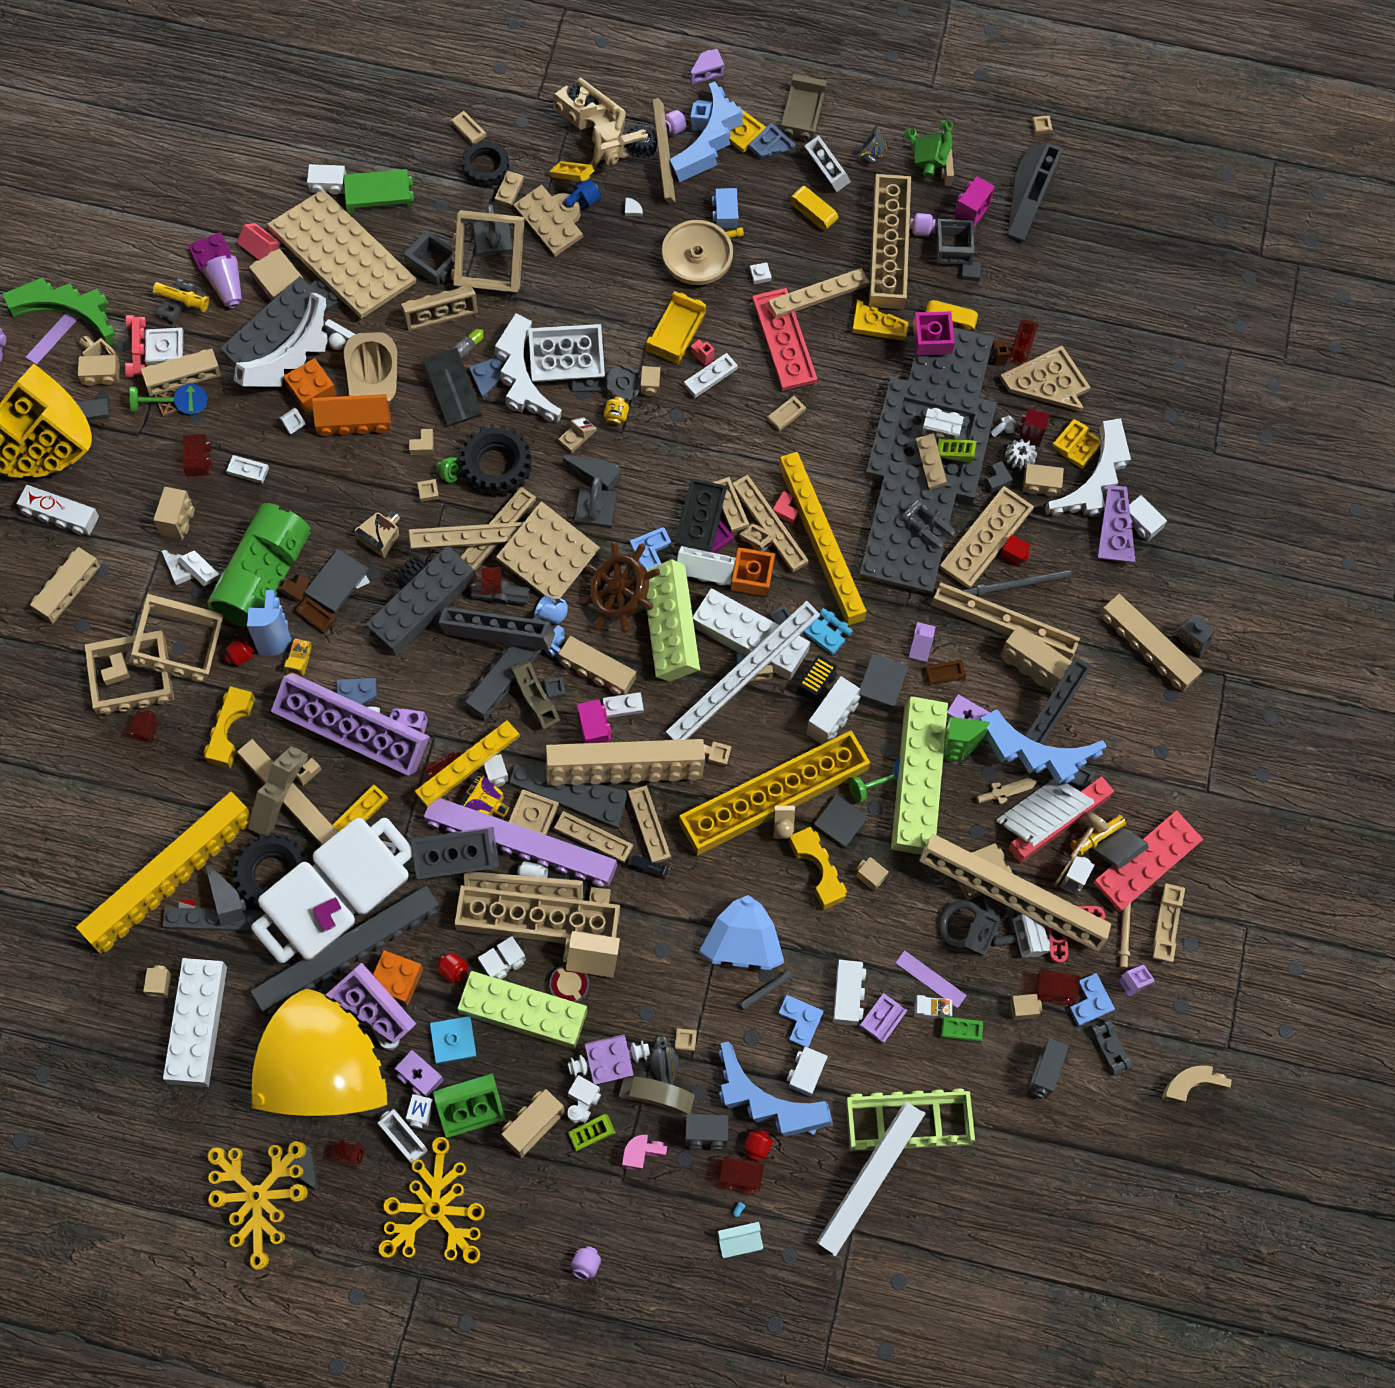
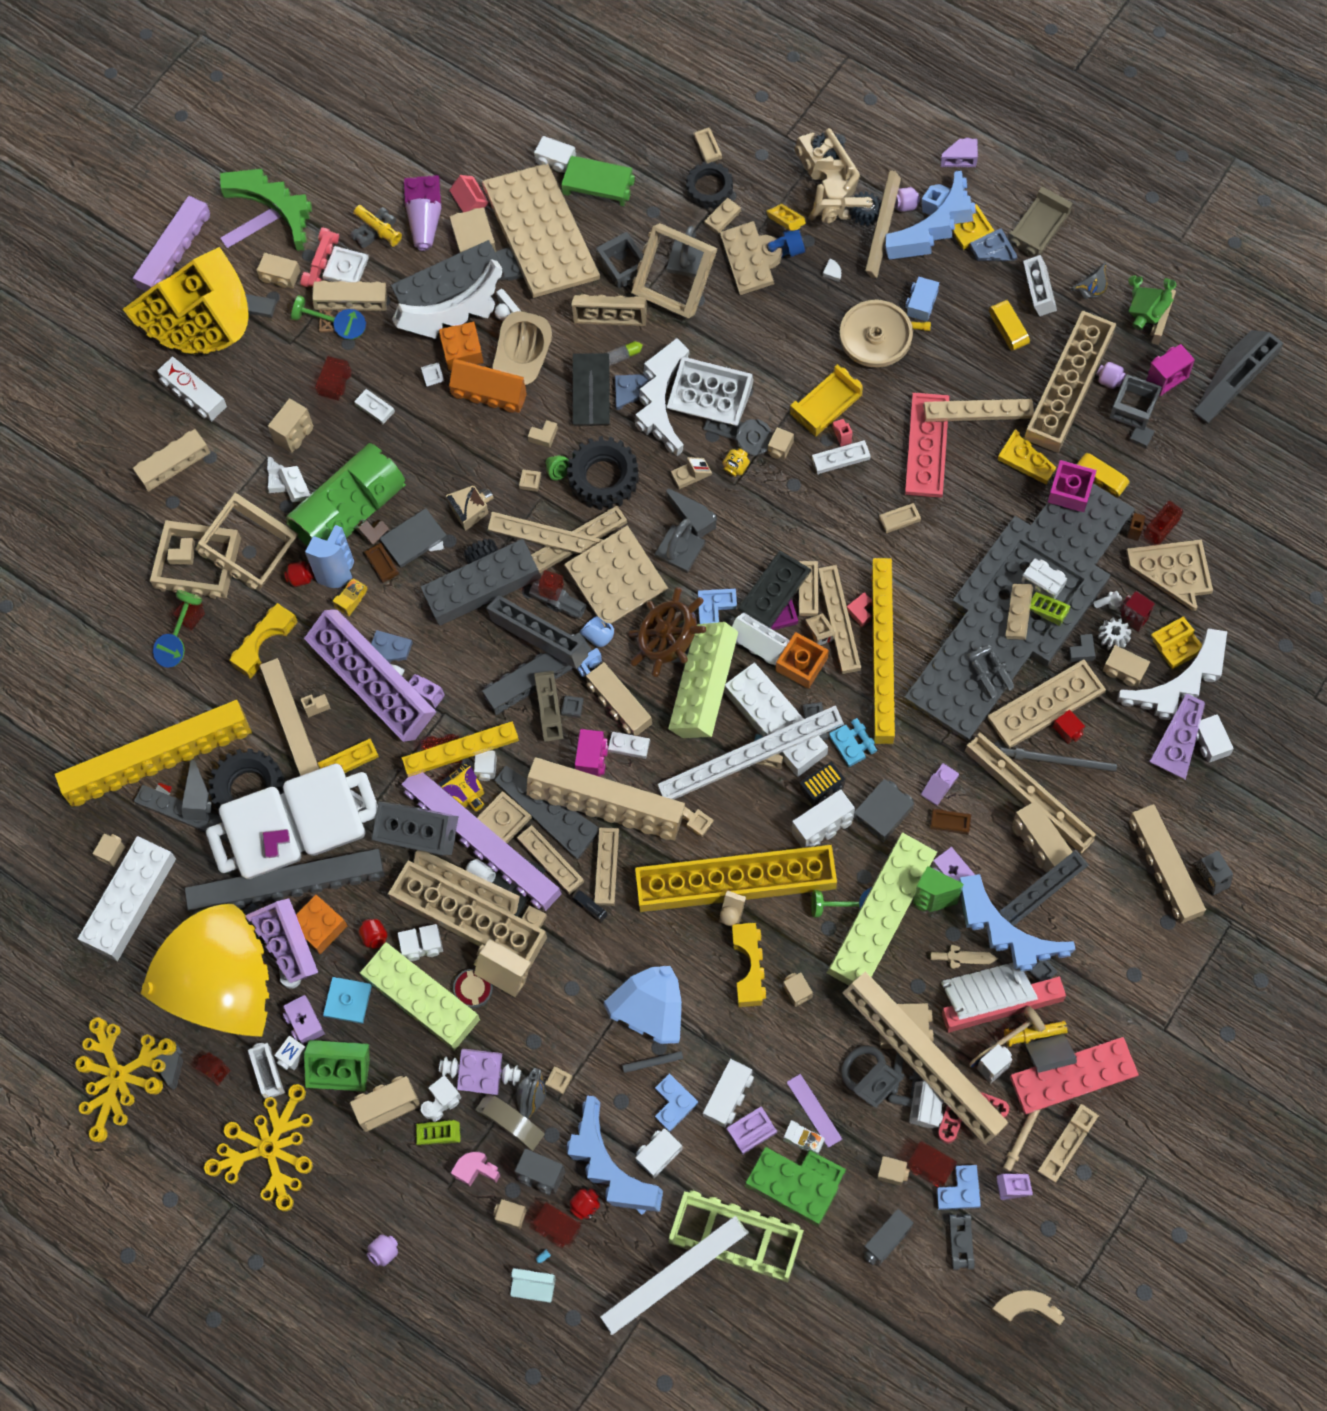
camera: 30 degrees right, 0 degrees up
(95, 349) = (283, 250): tan bracket -> none
(138, 767) = (169, 648): none -> piece
(272, 794) = (272, 716): dark tan arch -> none
(692, 1181) = (509, 1214): none -> tan brick
(760, 273) = (931, 373): white plate -> none
(840, 821) = (789, 928): dark grey tile -> none
(941, 1056) = (792, 1187): none -> bright green brick
(1042, 125) = (1276, 312): tan tile -> none

